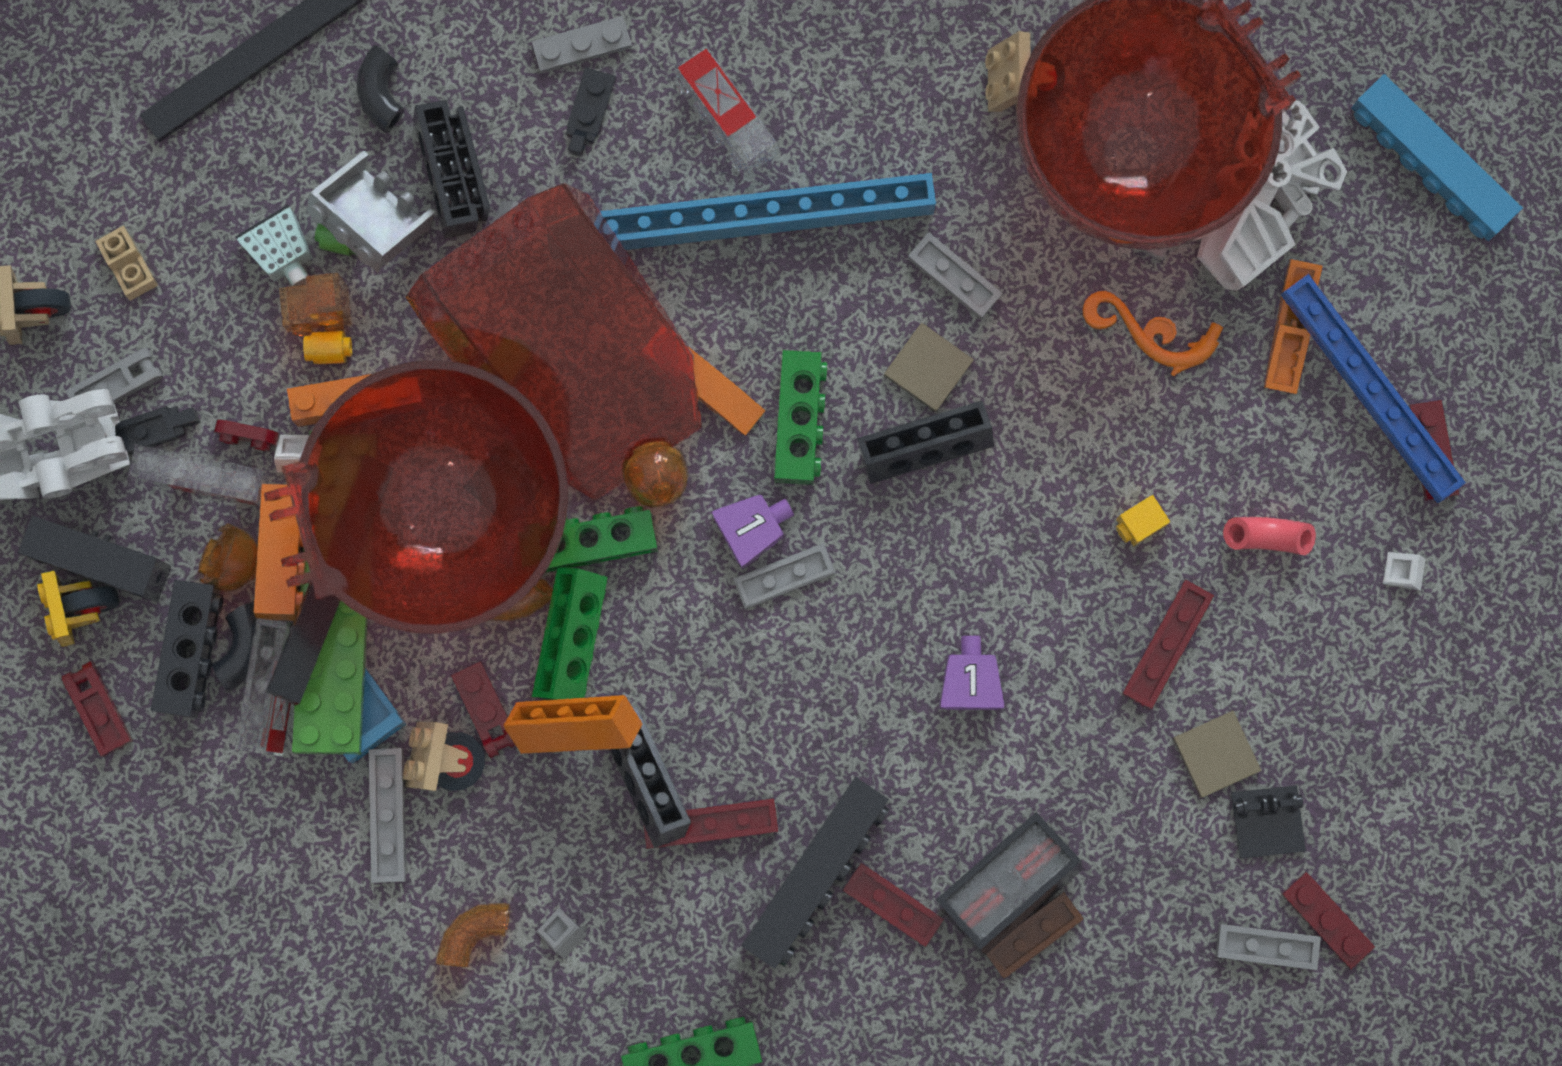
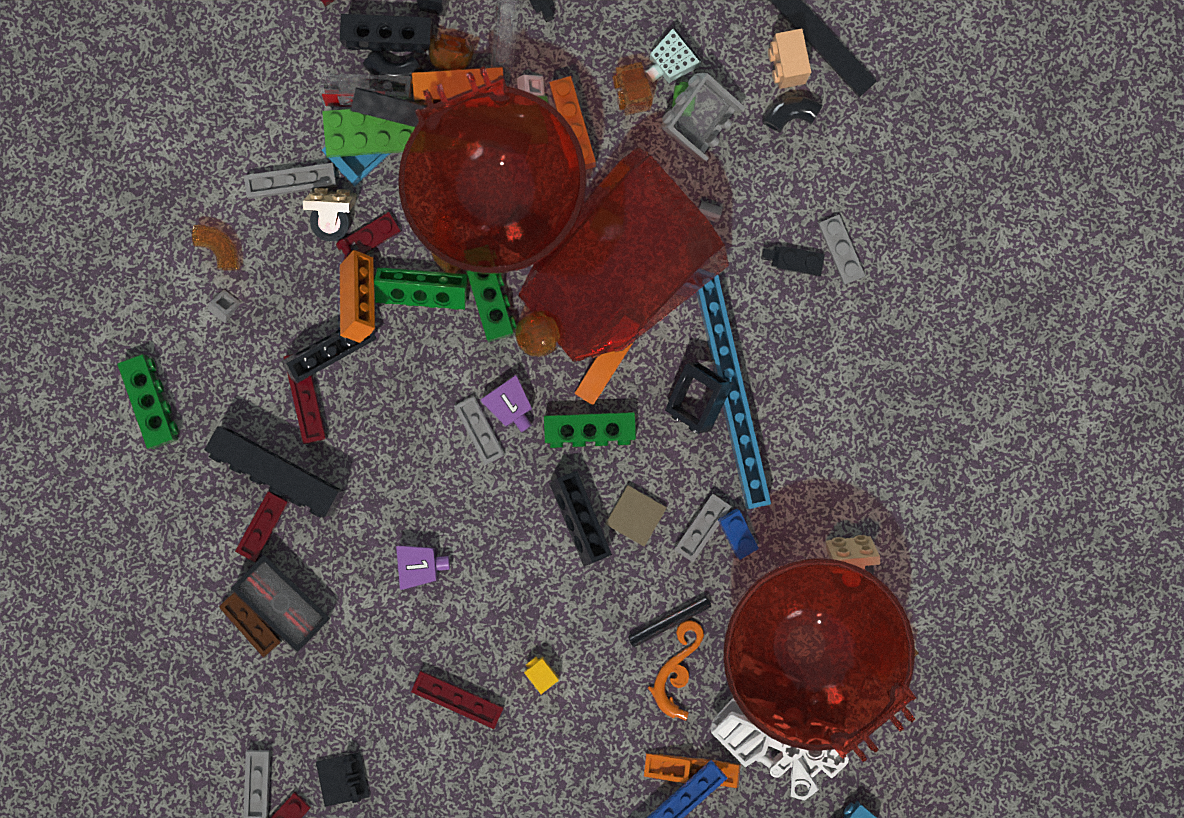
camera: 85 degrees right, 5 degrees up
(232, 432) = (539, 44): dark red plate -> none
(302, 81) = (789, 58): none -> light nougat brick
(327, 347) = (605, 100): yellow brick -> none
(444, 169) = (738, 164): black brick -> none
(726, 110) = (804, 355): clear brick -> none
(748, 235) = (720, 387): none -> black window
(968, 227) = (738, 534): none -> blue plate
(1082, 335) = (669, 621): none -> black axle
(1216, 754) = (385, 740): dark tan tile -> none
(1269, 534) = (541, 765): coral cylinder -> none

